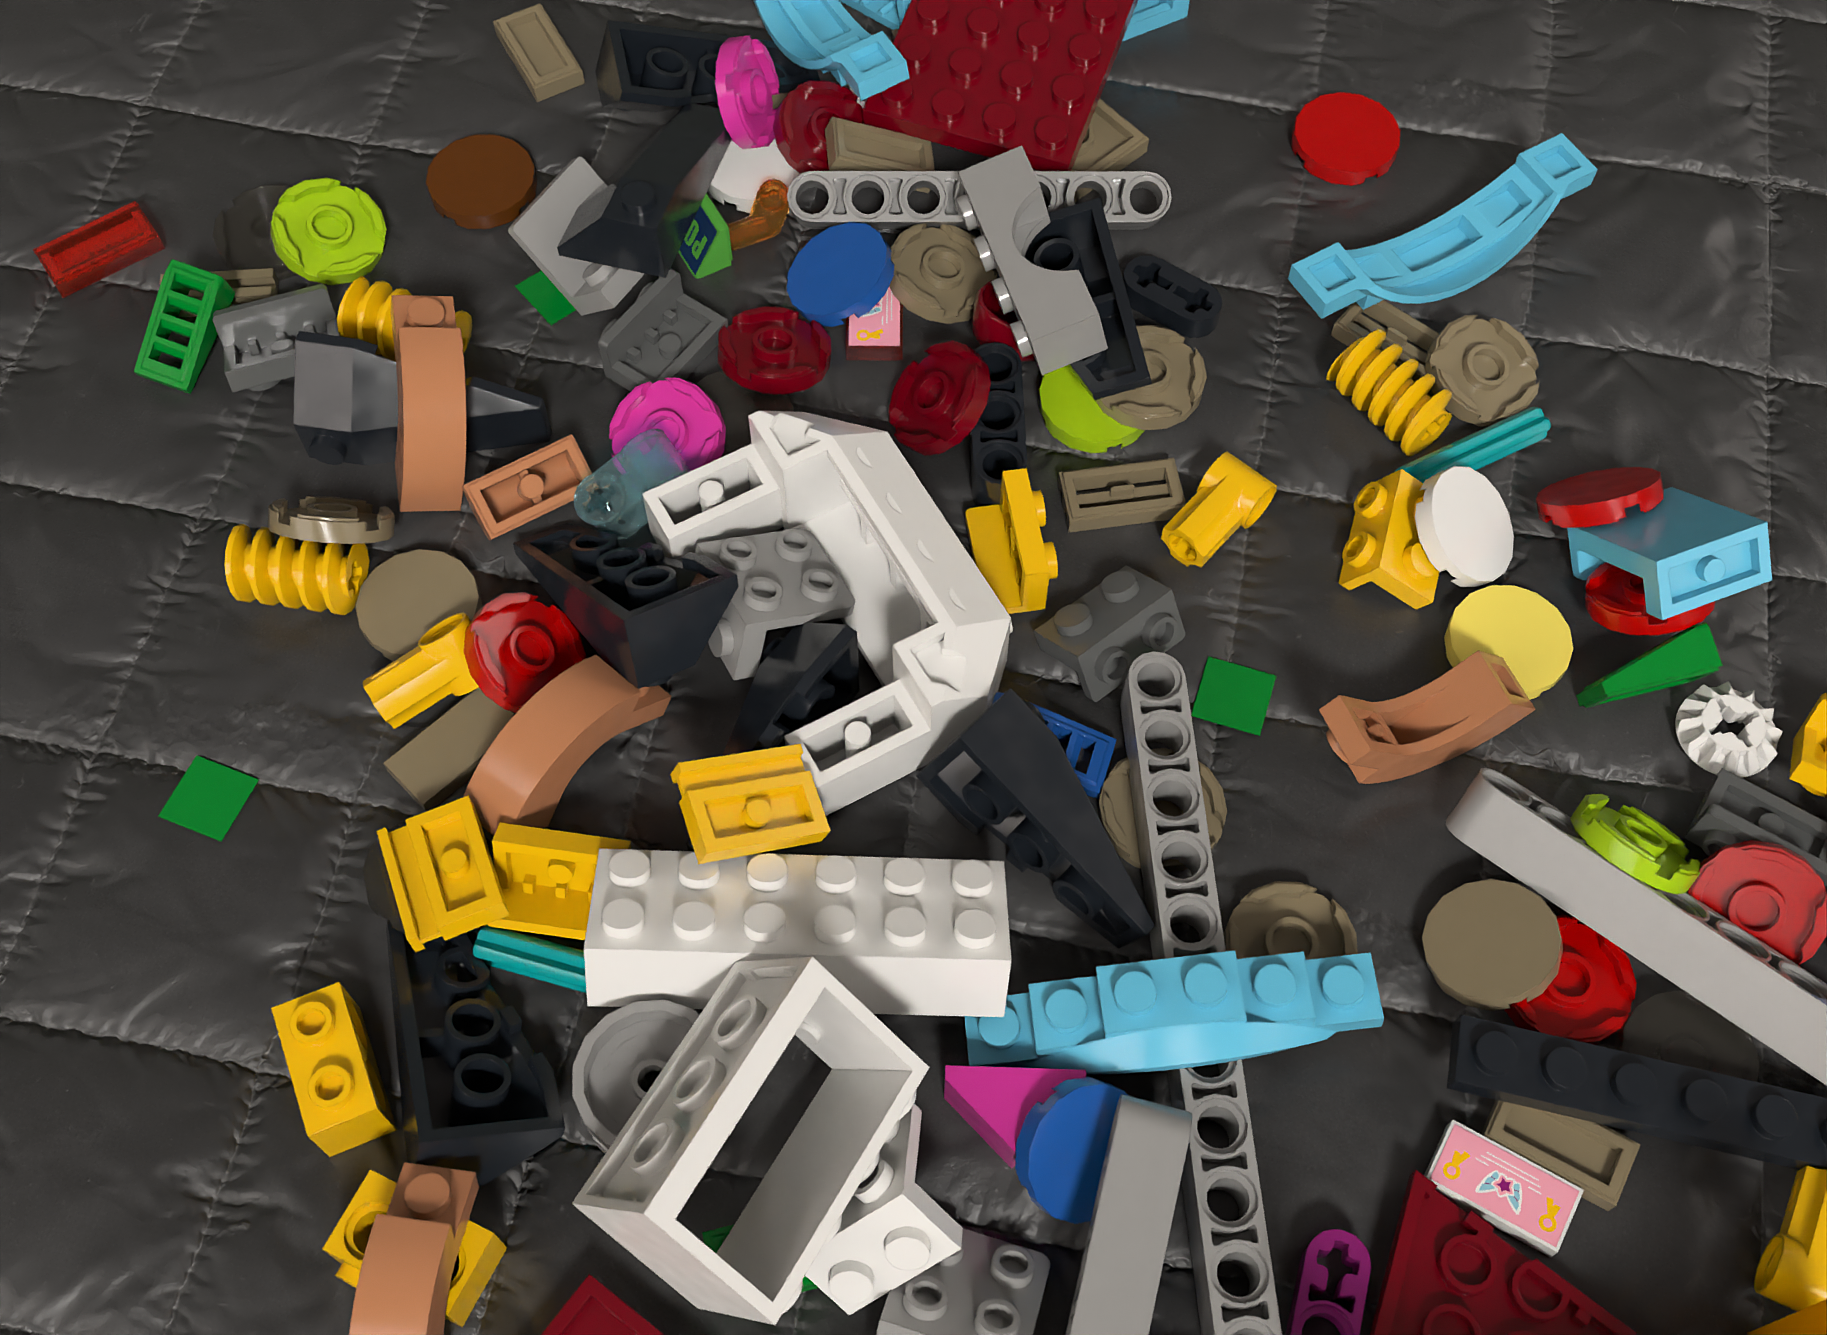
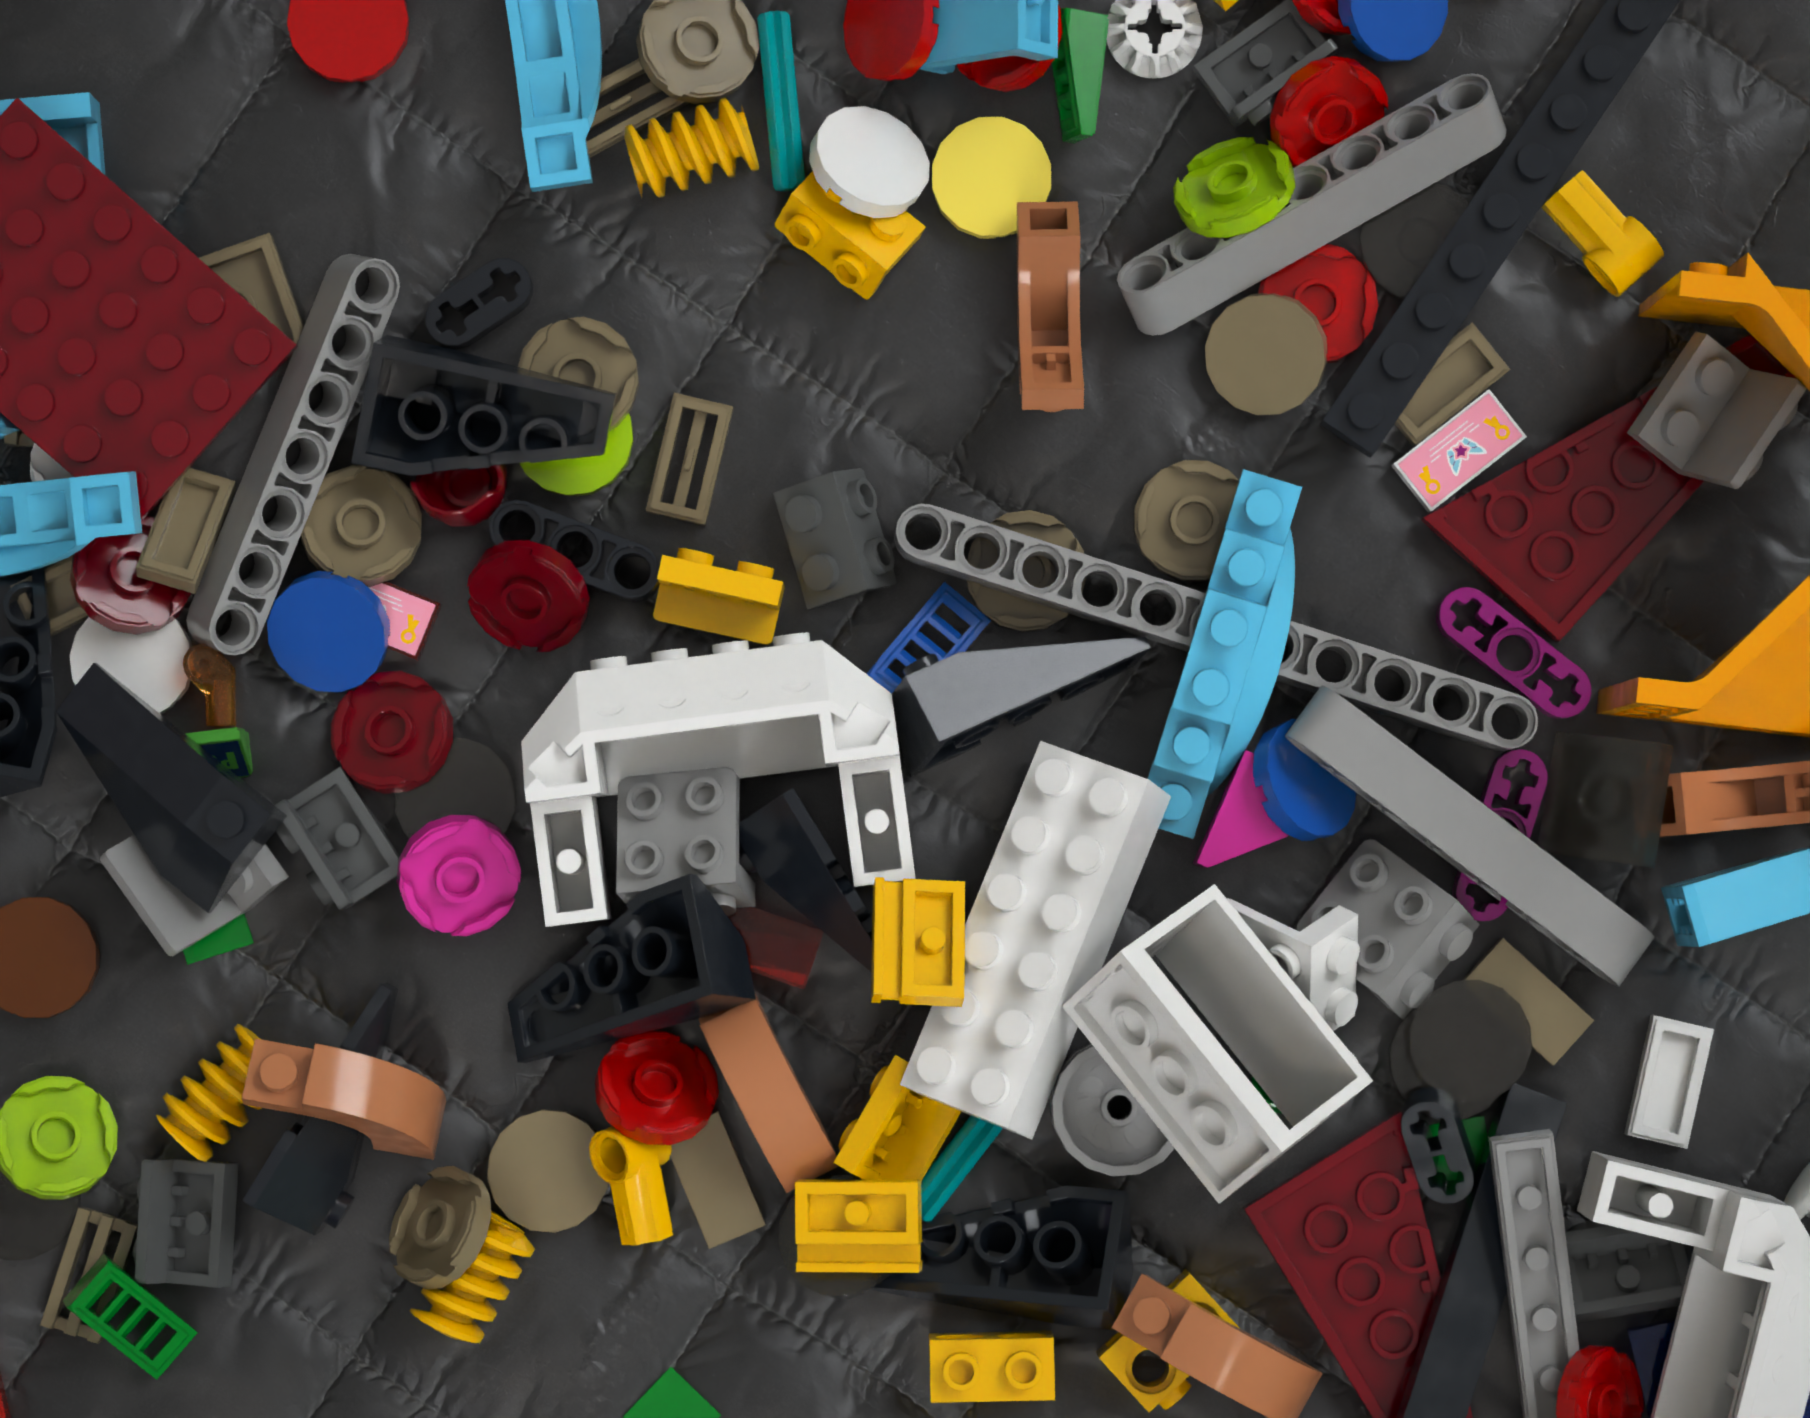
camera: 70 degrees left, 25 degrees up
(527, 487) = (466, 1026): nougat brick -> none
(638, 467) = (513, 922): clear light blue piece -> none
(701, 709) = (778, 945): none -> clear red tile
(745, 91) = (78, 647): dark pink tile -> none
(1051, 306) = (351, 445): light grey arch -> none
(1225, 500) = (746, 369): yellow piece -> none
(1233, 696) = (938, 452): green sticker -> none

